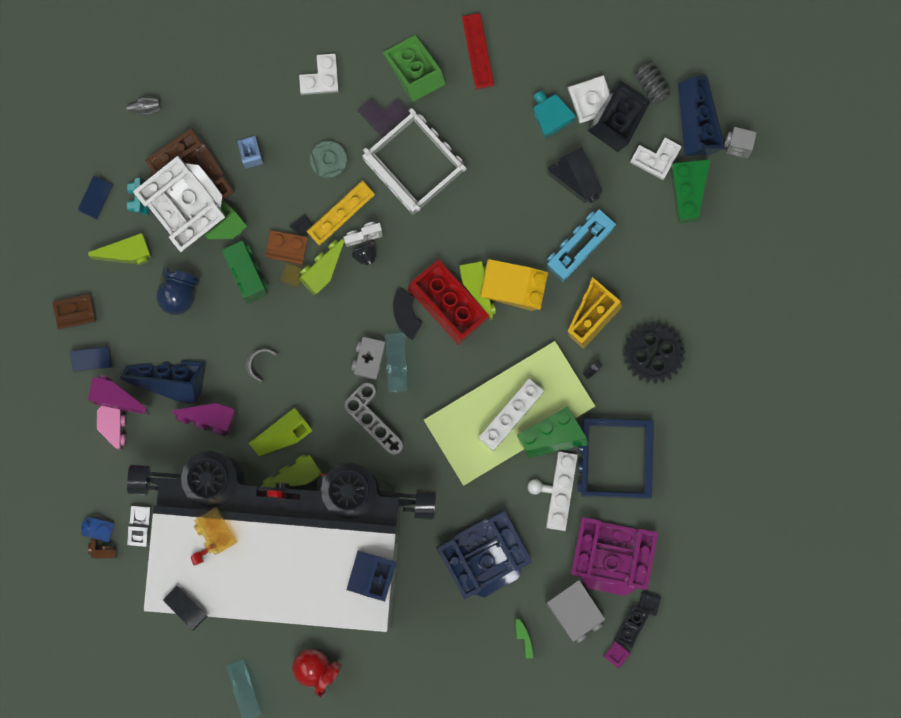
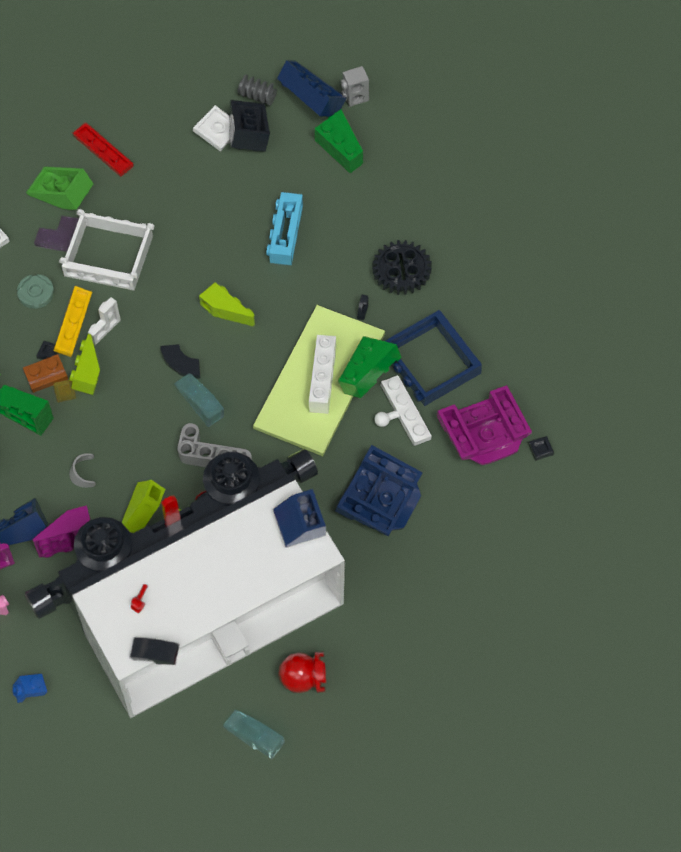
camera: 35 degrees left, 20 degrees down
(104, 553) = (48, 702): reddish brown bracket -> none
(139, 525) = (65, 661): slope -> none
(215, 532) = (138, 571): clear yellow bracket -> none
(365, 253) = (115, 336): black cone -> none
(371, 369) = (173, 400): light grey brick -> none
(448, 302) = (209, 328): red slope -> none
(514, 285) = (254, 282): yellow slope -> none
(521, 633) = (457, 533): bright green slope -> none
(551, 114) = (194, 155): teal torso -> none
(576, 176) = (245, 182): black slope -> none
(576, 612) = (486, 486): light grey slope -> none
(593, 314) = (333, 266): yellow wedge -> none
(617, 655) = (546, 502): magenta tile -> none
(631, 626) = (540, 472): black slope -> none
(656, 163) = (302, 140): white plate -> none

